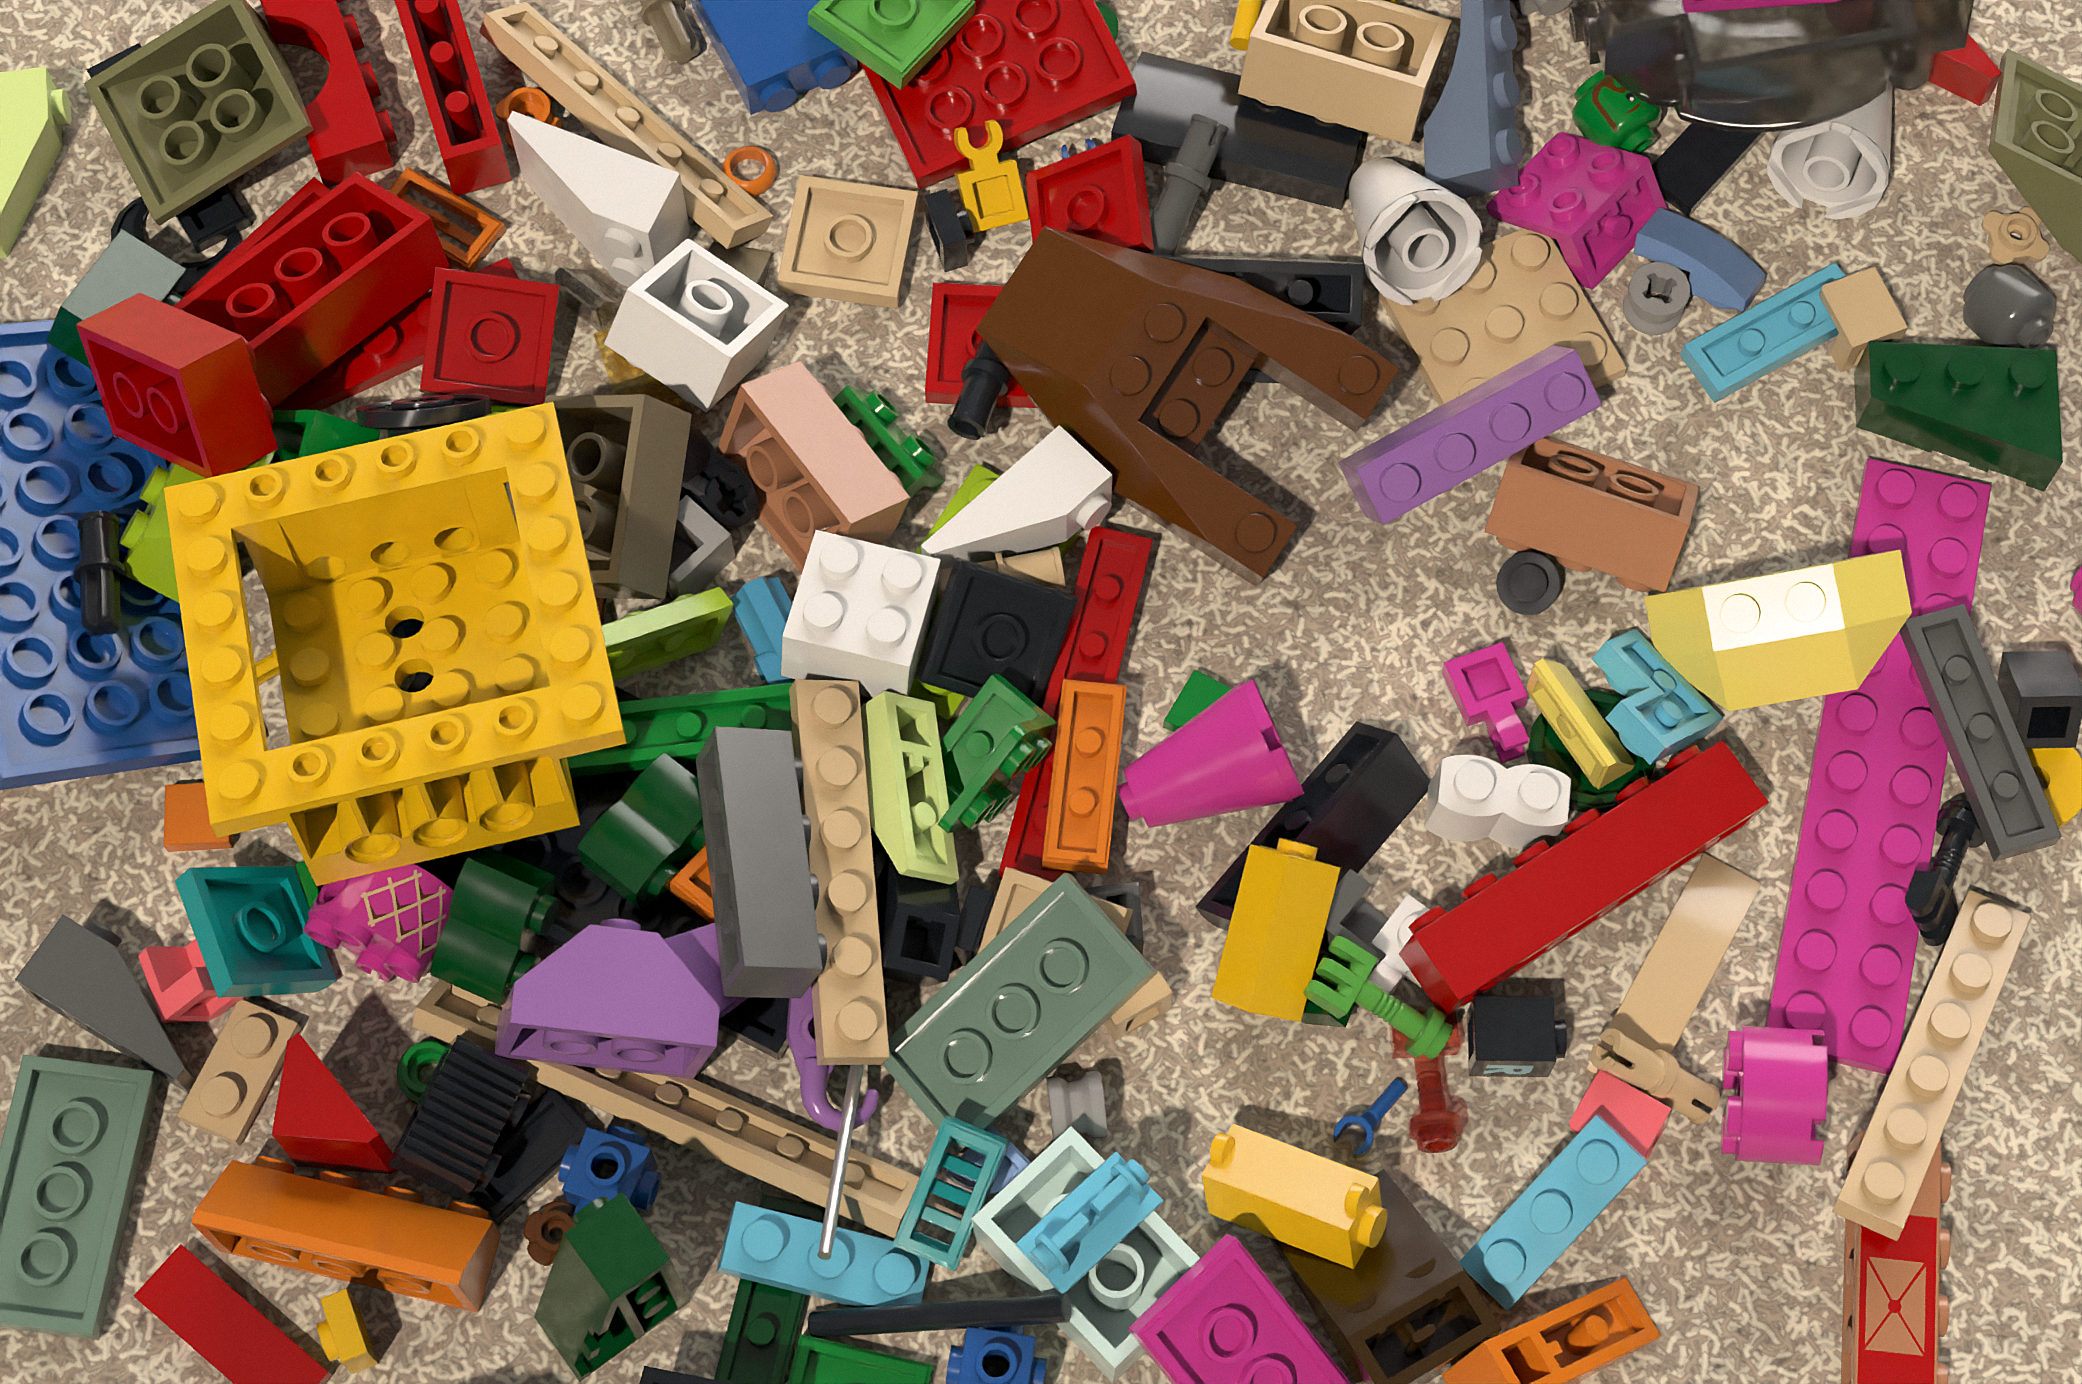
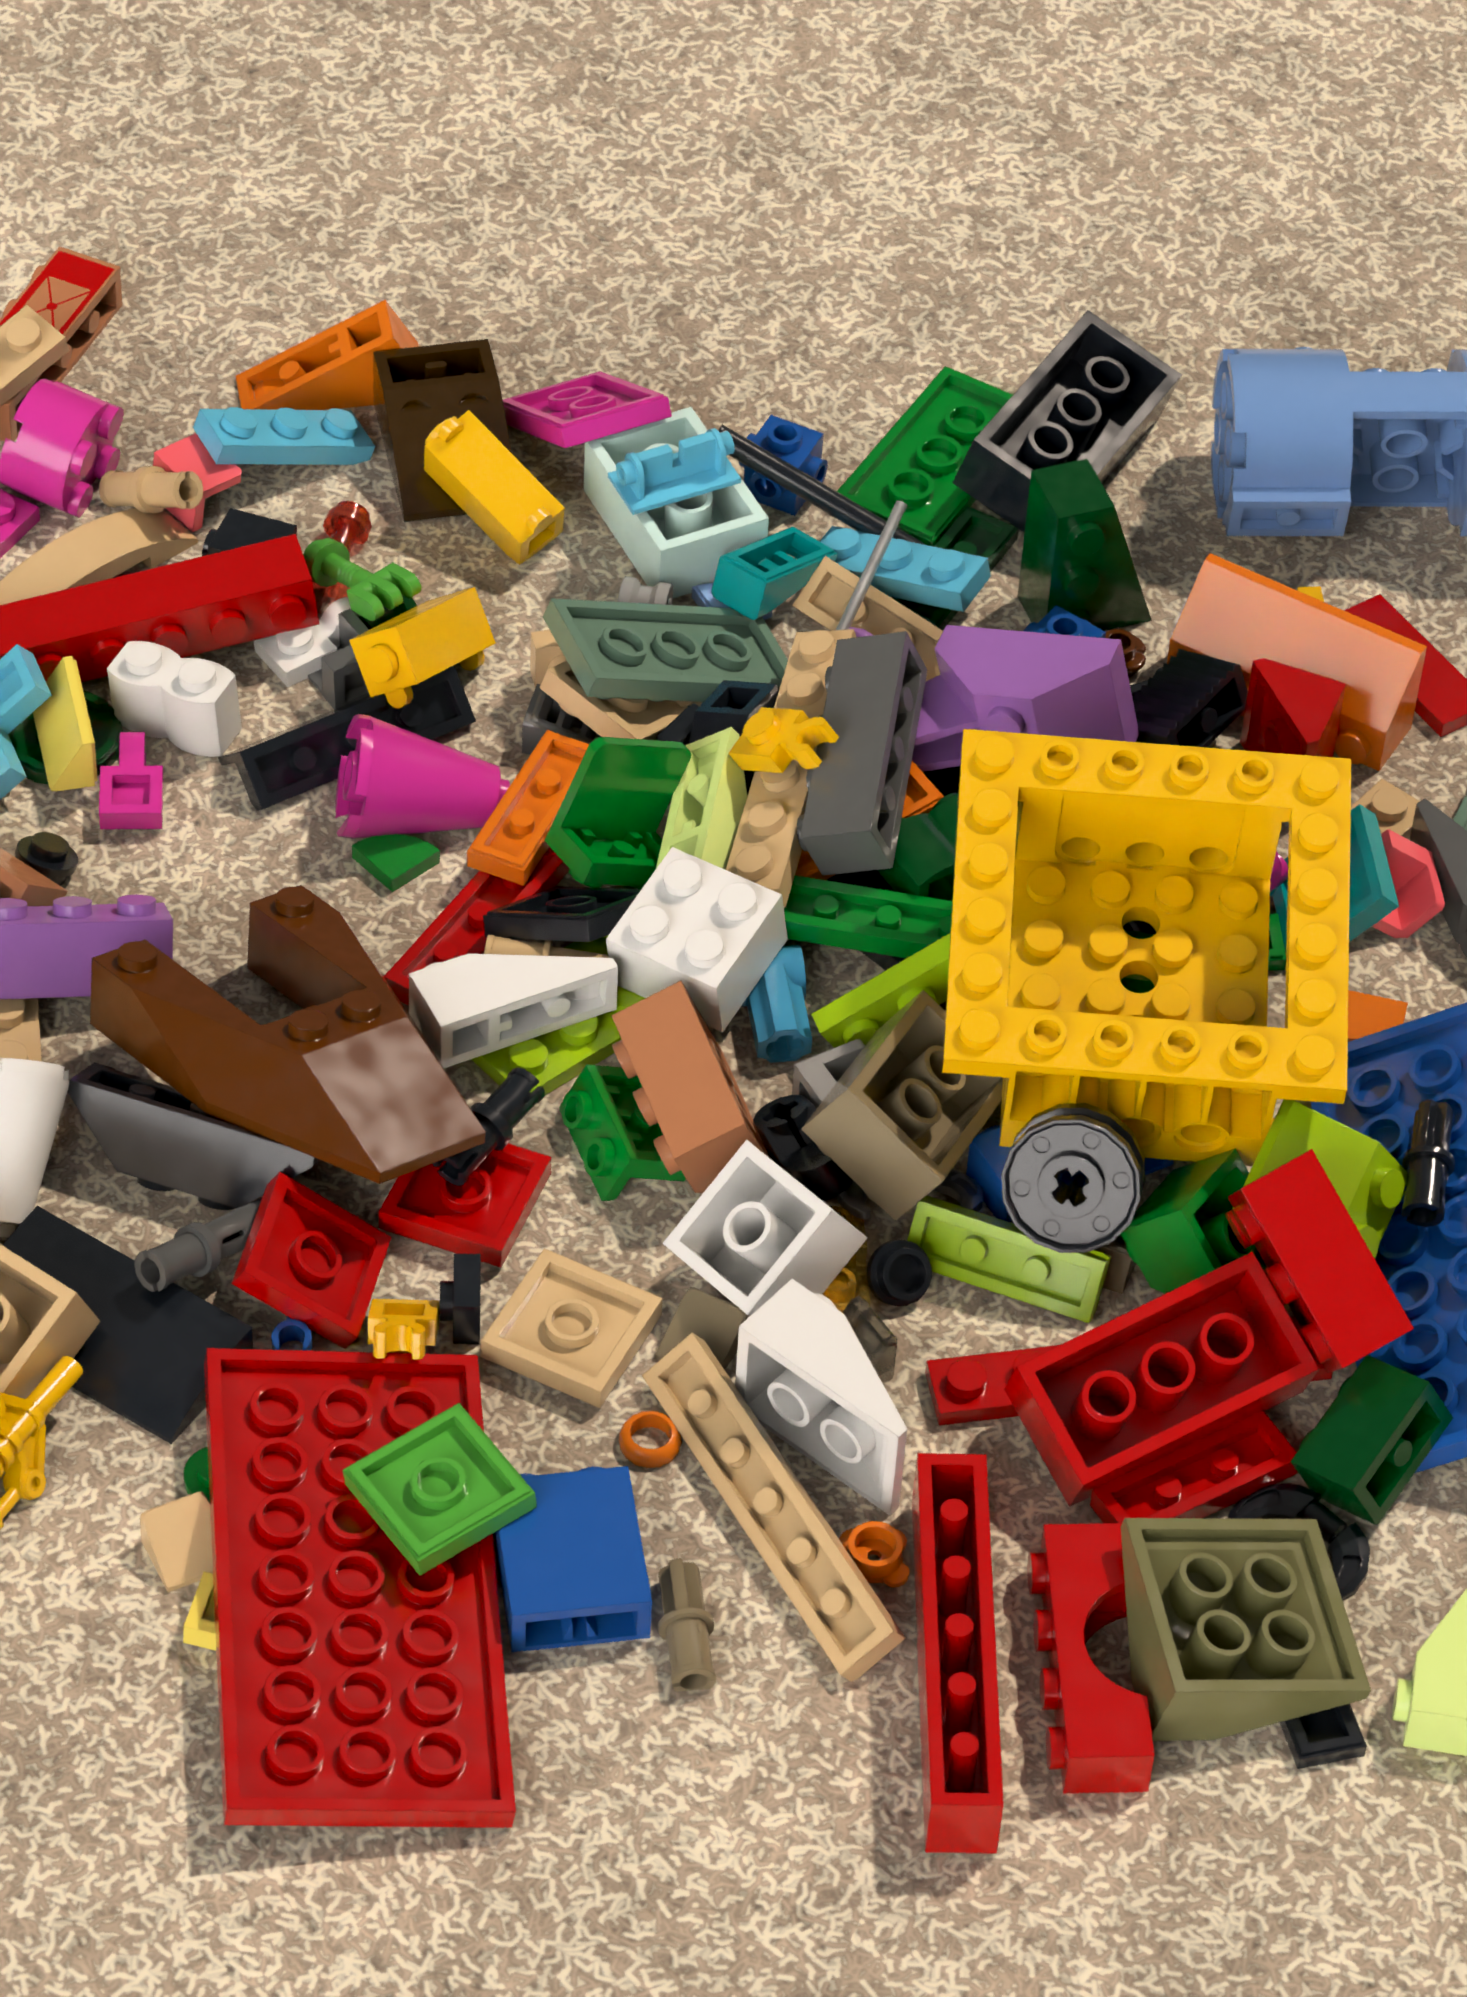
camera: 165 degrees left, 20 degrees down
(478, 246) = (1020, 1530): orange tile -> none
(489, 337) = (982, 1316): red plate -> none
(579, 377) = (899, 1272): none -> black plate
(849, 840) = (779, 736): none -> yellow plate
(1371, 1116) = (412, 548): blue hand -> none

